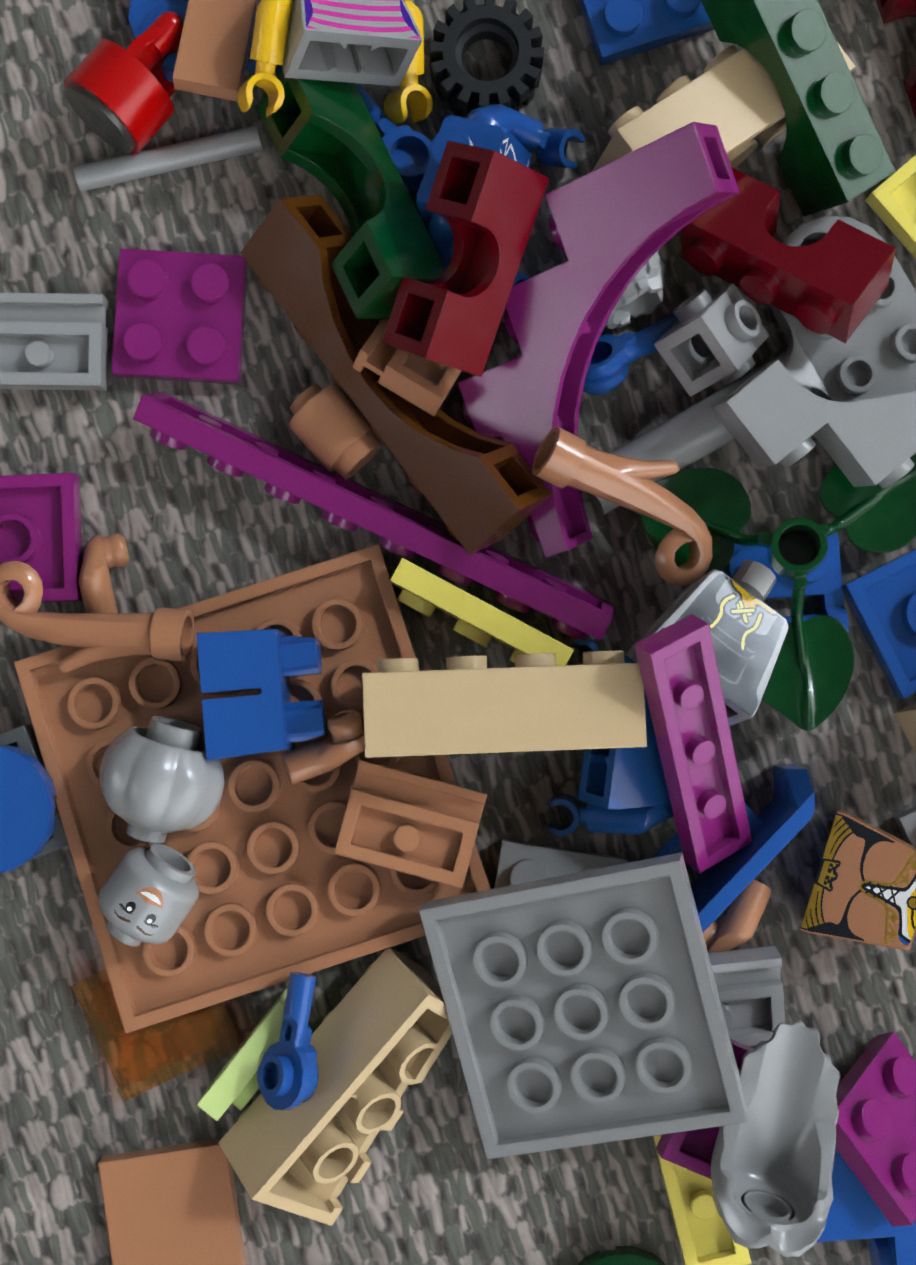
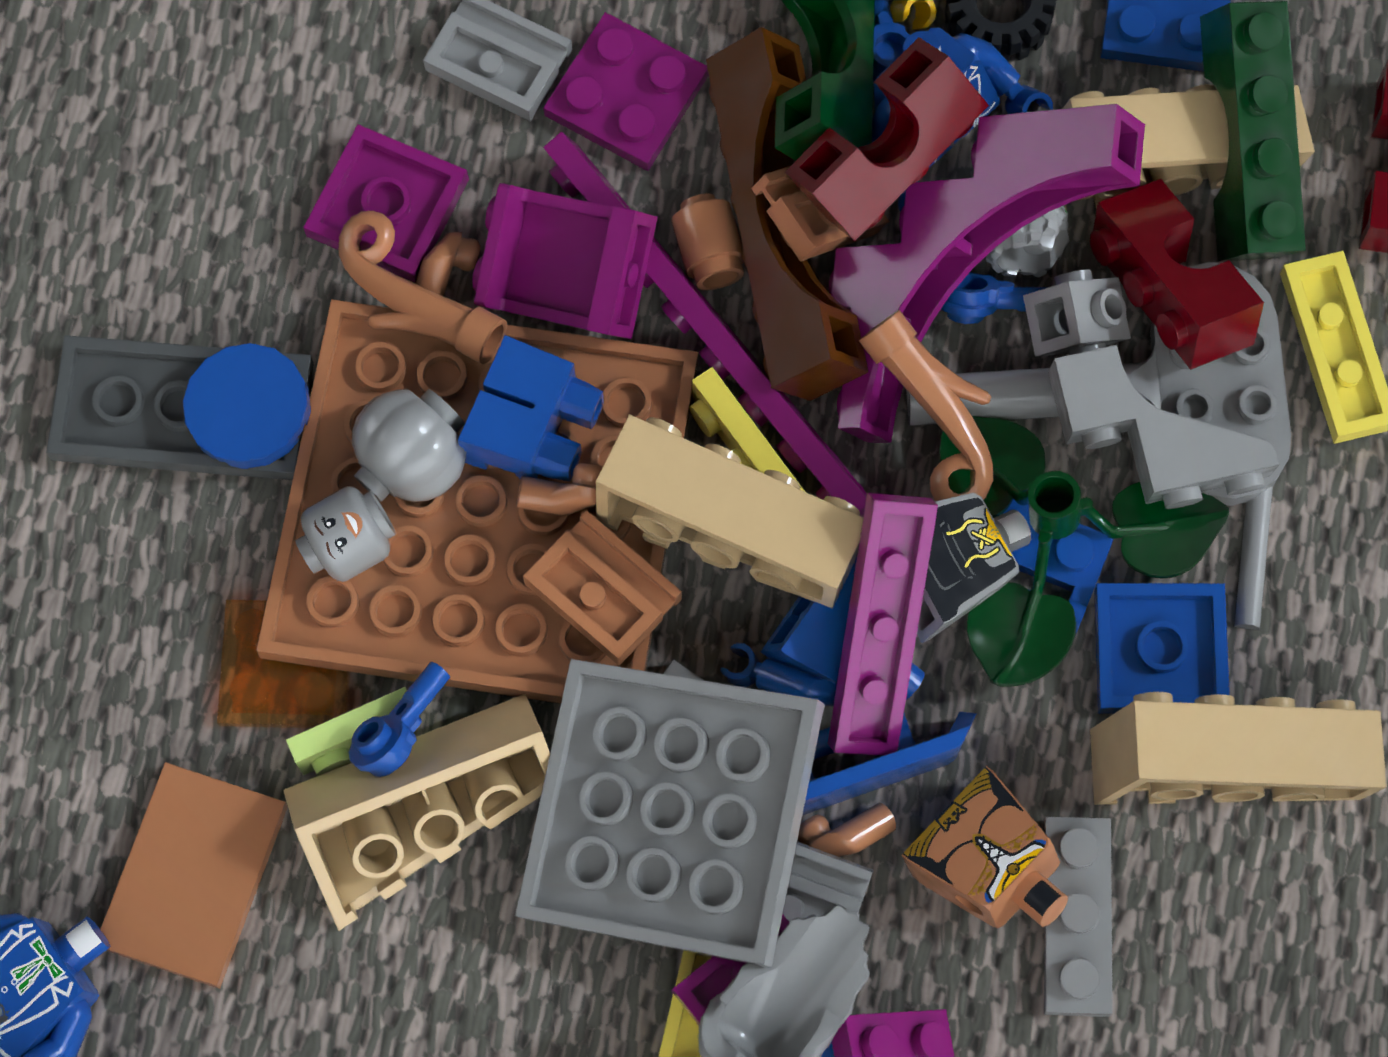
camera: 30 degrees right, 15 degrees down
(211, 520) = (564, 260): none -> magenta panel

